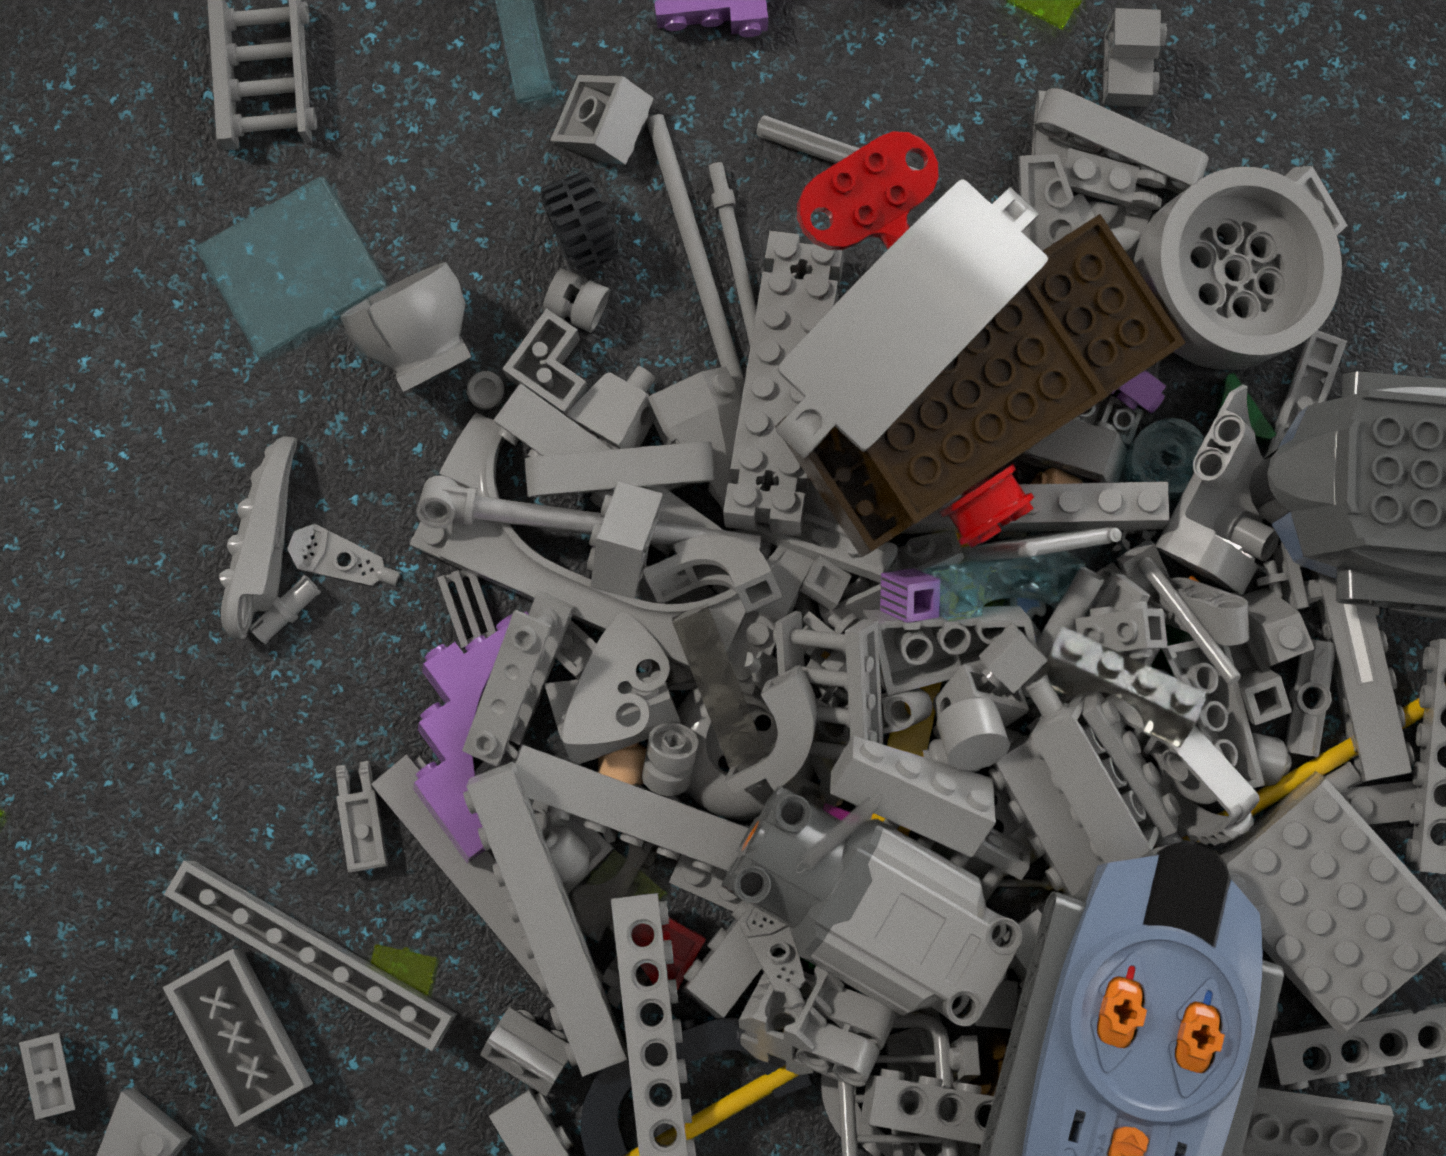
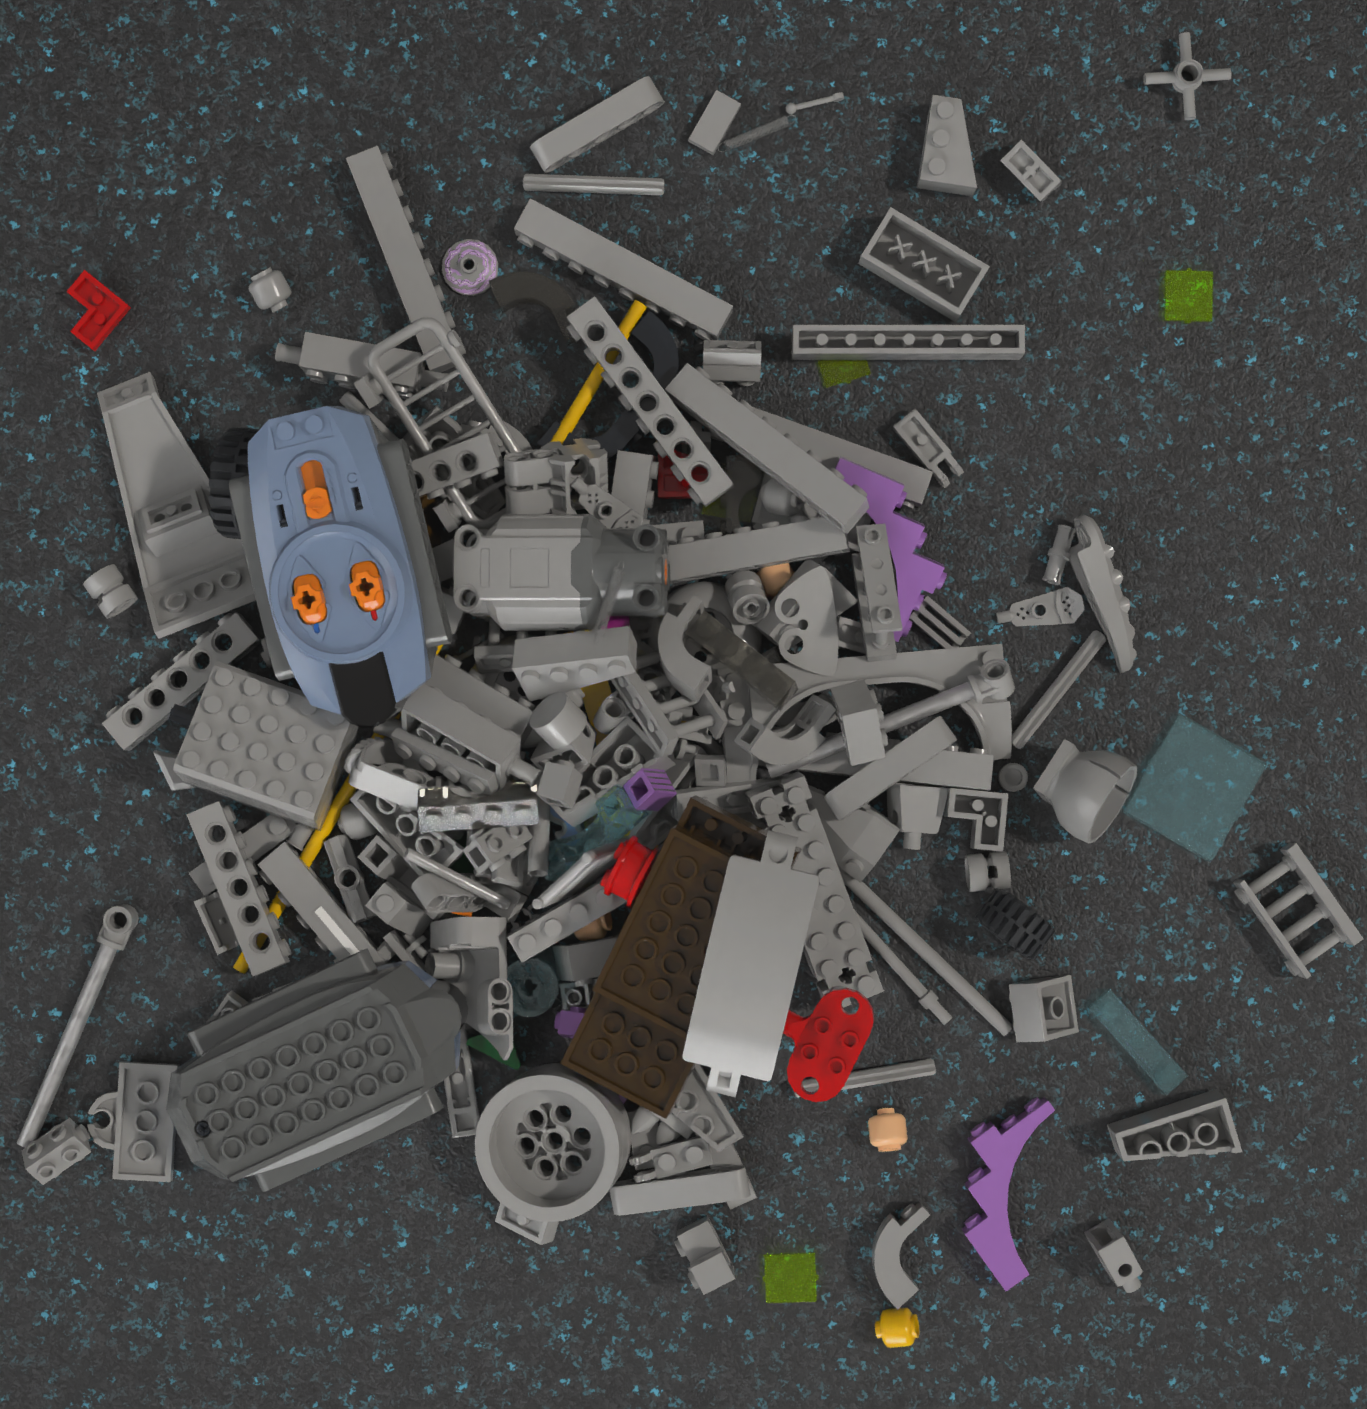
camera: 145 degrees right, 5 degrees up
(376, 459) = (1058, 689): none -> light grey axle
(851, 83) = (887, 1130): none -> light nougat head

